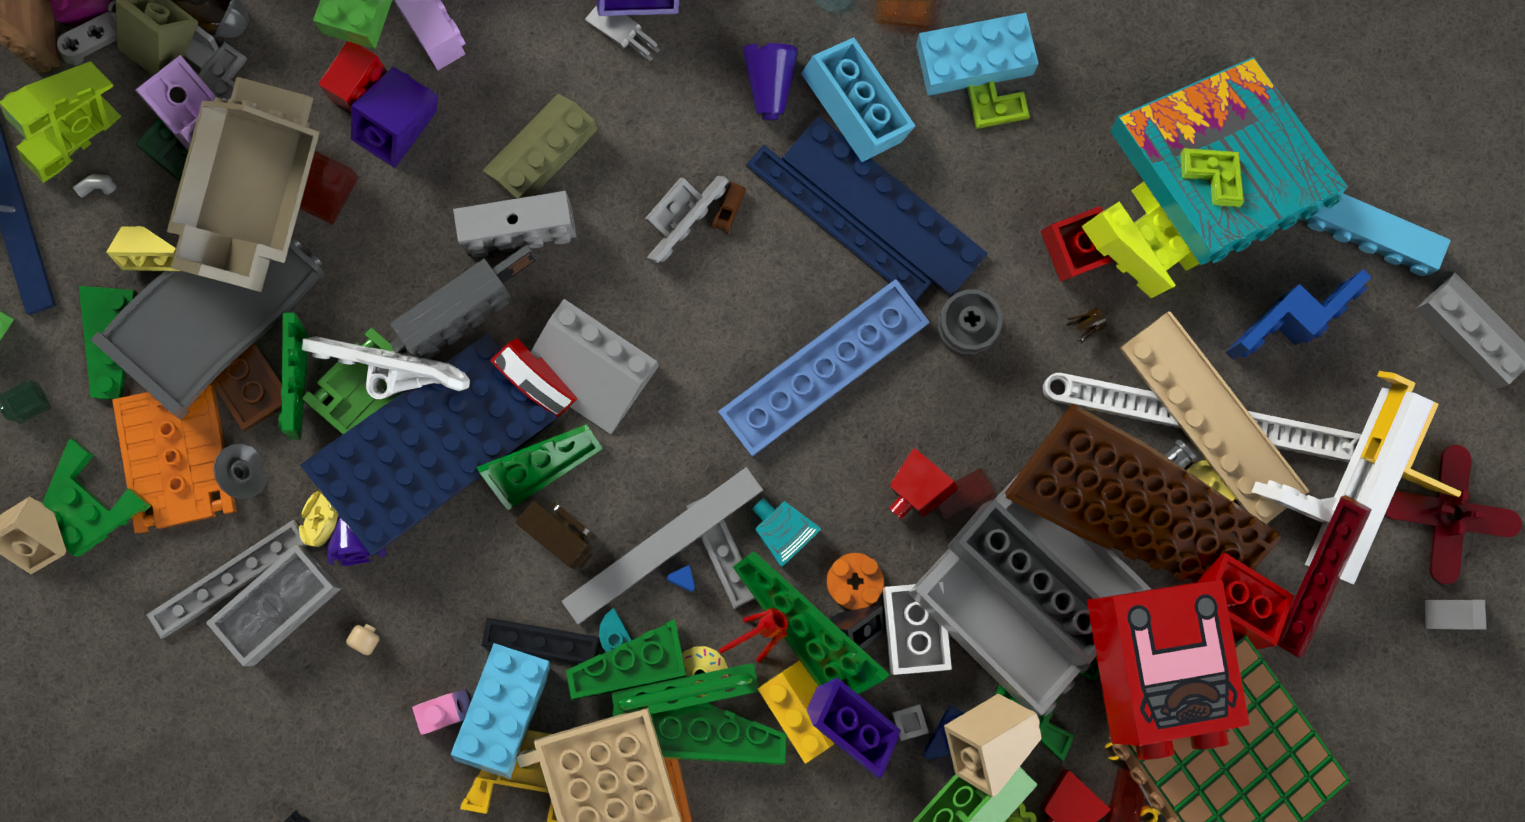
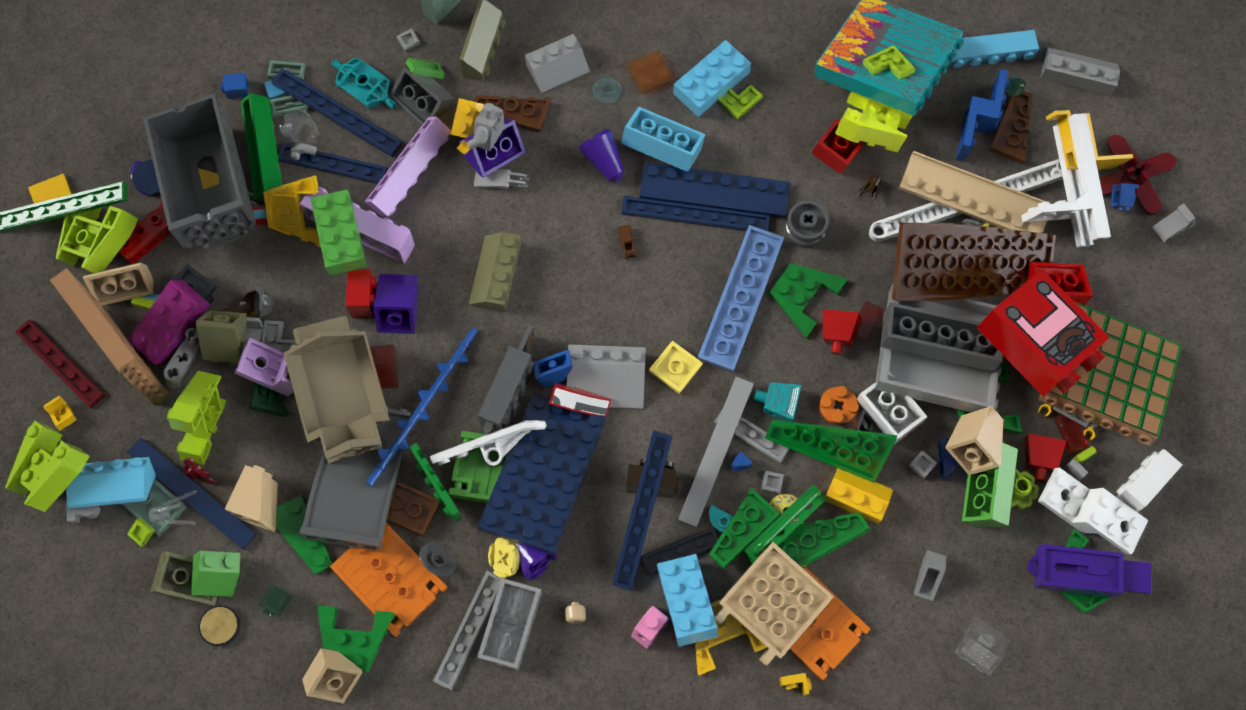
camera: 30 degrees left, 10 degrees down
(28, 186) = (195, 471): none -> dark red plate
(70, 263) = (255, 498): none -> tan slope
(93, 182) = (241, 443): light grey arm -> none
(141, 250) = (297, 464): light yellow slope -> none
(332, 275) = (420, 413): none -> blue plant
(515, 224) = (511, 319): light grey brick -> none
(515, 566) = (642, 509): none -> dark blue plate
(525, 317) = (553, 368): none -> blue slope
(534, 467) = (611, 453): green wing -> none
(678, 212) = (601, 259): light grey bracket -> none
(683, 407) = (675, 367): none -> light yellow plate
(708, 626) = (772, 482): none -> light grey tile
(771, 624) = (809, 453): red plant -> none
(853, 725) = (894, 480): dark purple slope -> none
(903, 399) = (797, 289): none -> green wing
(1323, 575) = (1091, 241): dark red tile -> none
(1326, 360) = (1013, 130): none -> reddish brown wing
(1370, 303) = (1016, 86): none -> clear green piece
(1413, 537) = (1123, 196): none -> blue brick

